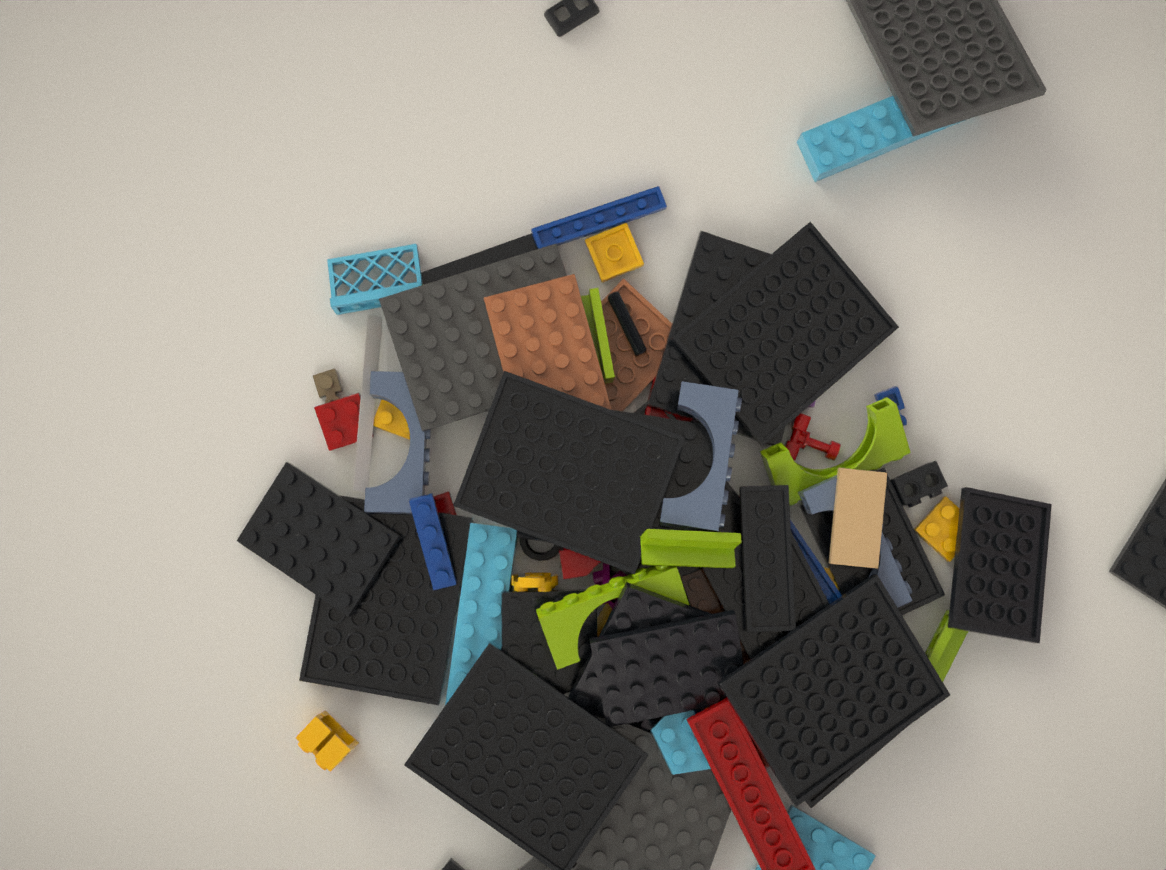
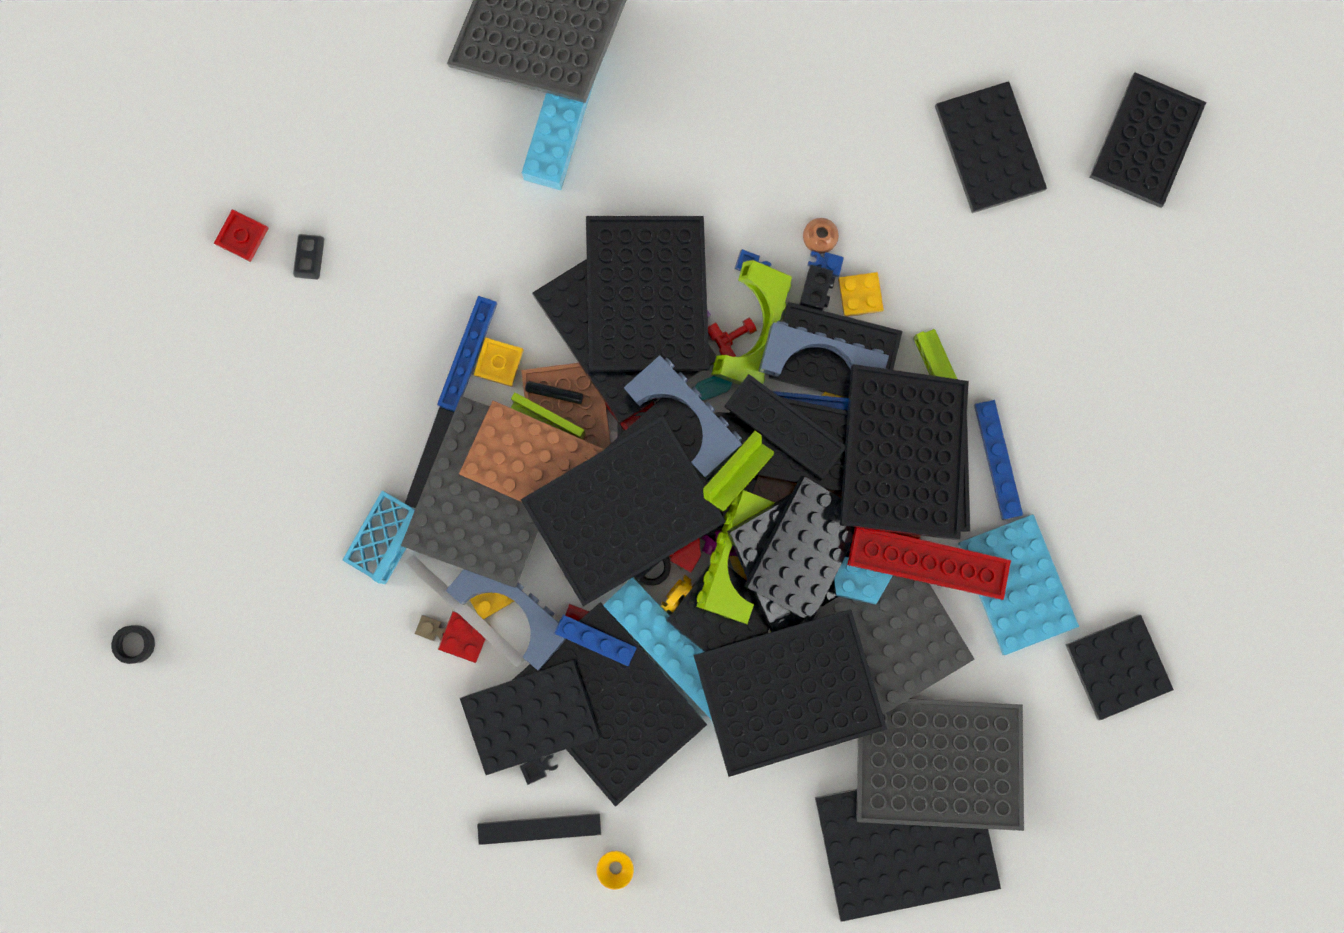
camera: 50 degrees left, 0 degrees up
(102, 125) = (117, 647): none -> black tyre
(226, 627) = (539, 829): none -> black tile
(230, 727) = (612, 880): none -> yellow piece
(276, 582) = (535, 769): none -> black plate
(326, 741) = (671, 818): yellow piece -> none
(748, 462) = (712, 387): none -> teal tile
(858, 518) = (806, 346): tan tile -> none
(899, 781) = (998, 459): none -> blue plate
(953, 475) = (829, 261): none -> blue plate
(959, 448) = (816, 243): none -> nougat piece
(1000, 565) = (911, 280): black plate -> none

